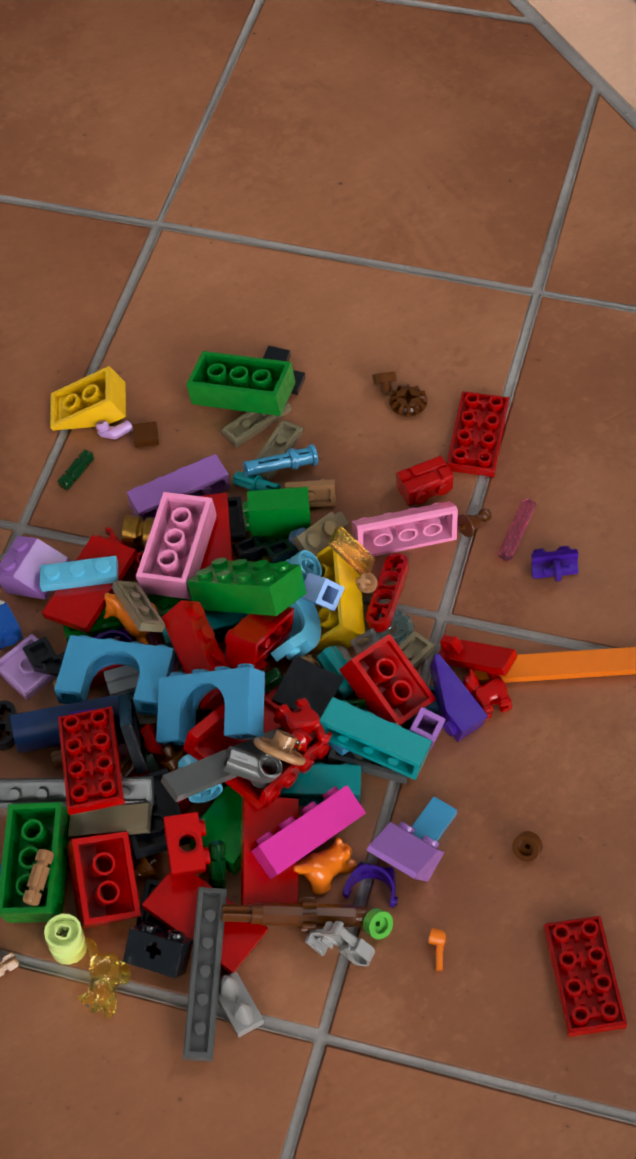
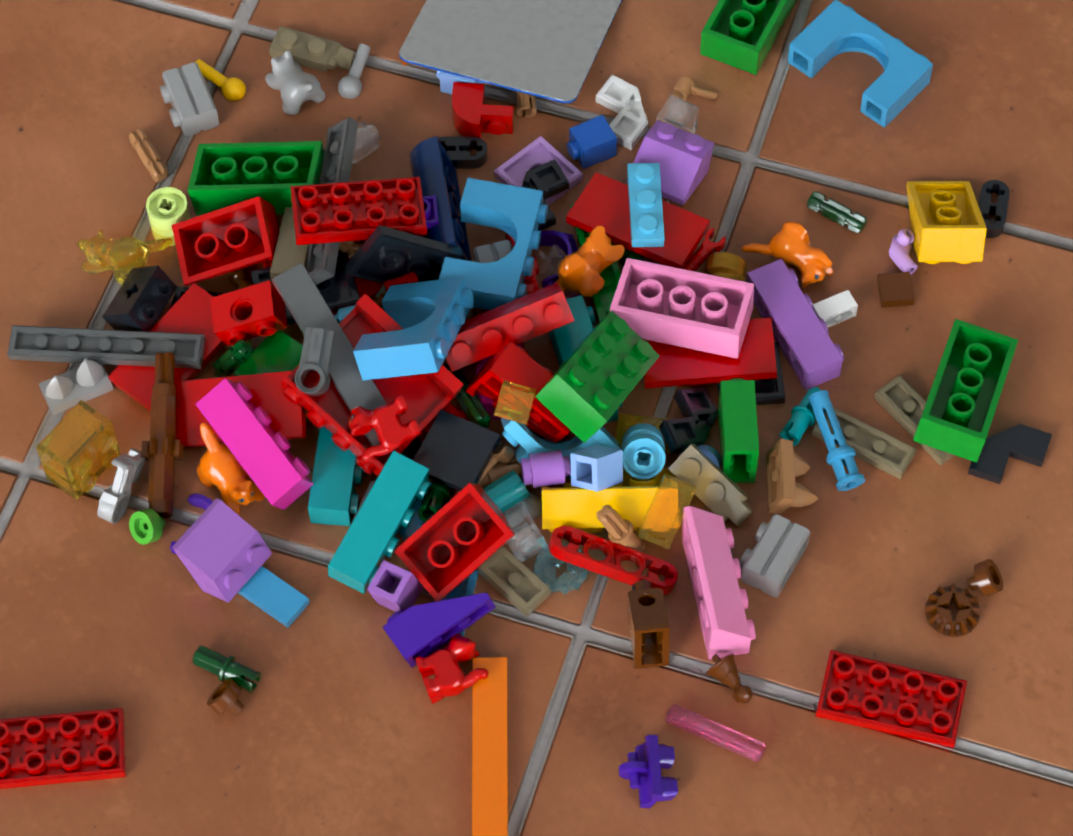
camera: 90 degrees right, 5 degrees up
(38, 877) = (223, 171): medium nougat axle -> none
(72, 375) = (997, 209): none -> black beam
(111, 490) = (794, 248): none -> orange animal
(138, 606) = (579, 260): dark tan tile -> none
(162, 464) = (836, 308): none -> white piece
(278, 633) = (515, 402): none -> clear yellow tile
(280, 747) = (344, 393): medium nougat piece -> none
(313, 977) = (78, 450): none -> clear yellow piece
(322, 627) = (545, 469): none -> medium lavender brick
(374, 495) = (775, 555): none -> light grey brick
(424, 481) = (799, 618): red brick -> none
(438, 938) = (120, 594): orange hand -> none
(440, 565) = (647, 615): none -> reddish brown torso
(477, 655) = (500, 655): red hinge -> none
(501, 849) = (226, 668): none -> dark green axle

